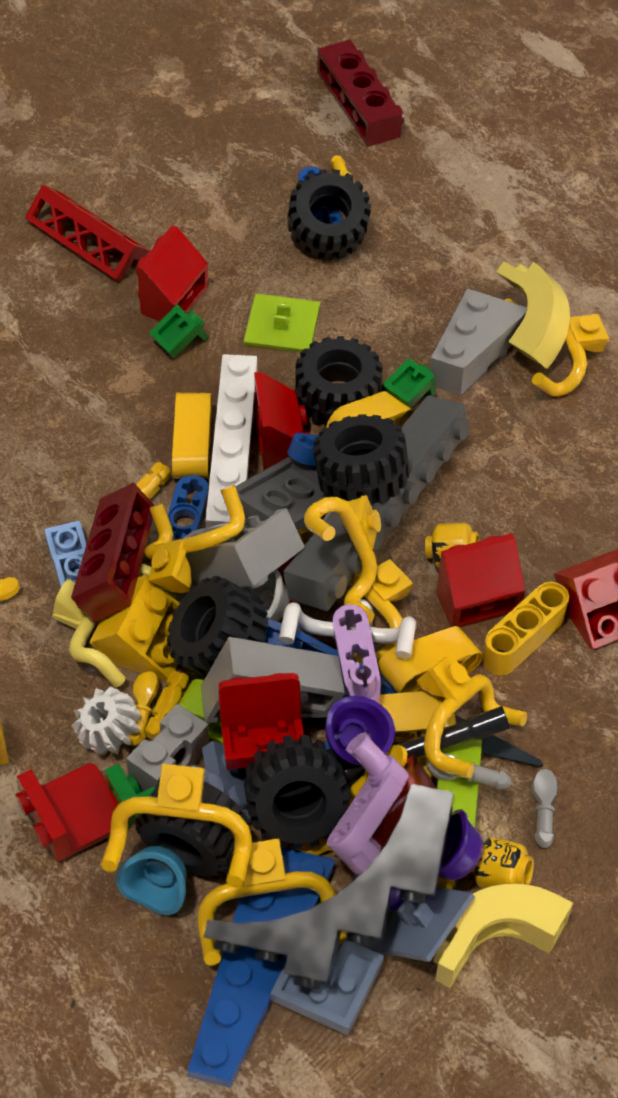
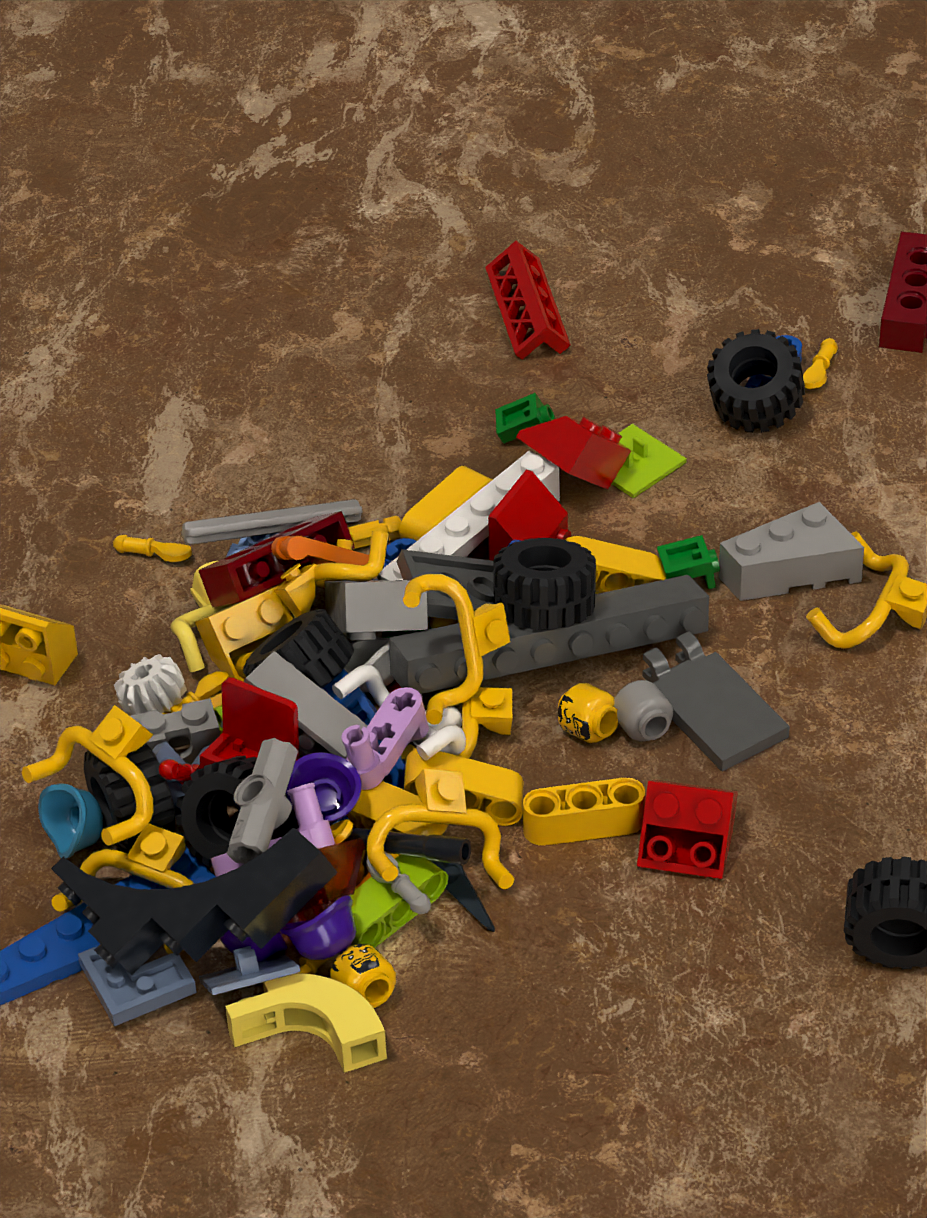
camera: 40 degrees right, 10 degrees down
(68, 810) = (39, 729): red bracket -> none
(69, 523) = (263, 522): none -> light grey axle
(163, 529) = (301, 547): none -> orange plate
(171, 275) = (555, 365): red slope -> none
(237, 783) = (173, 770): none -> red piece
(255, 334) = (579, 448): none -> red slope
(331, 362) = (623, 514): black tyre -> none
(362, 795) = (262, 800): none -> light grey piece
(480, 580) = (573, 742): red slope -> none
(491, 518) = (643, 710): none -> light grey head
(523, 488) = (714, 704): none -> dark grey tile
(544, 790) = (468, 948): light grey piece -> none
(546, 316) = (873, 560): light yellow arch -> none

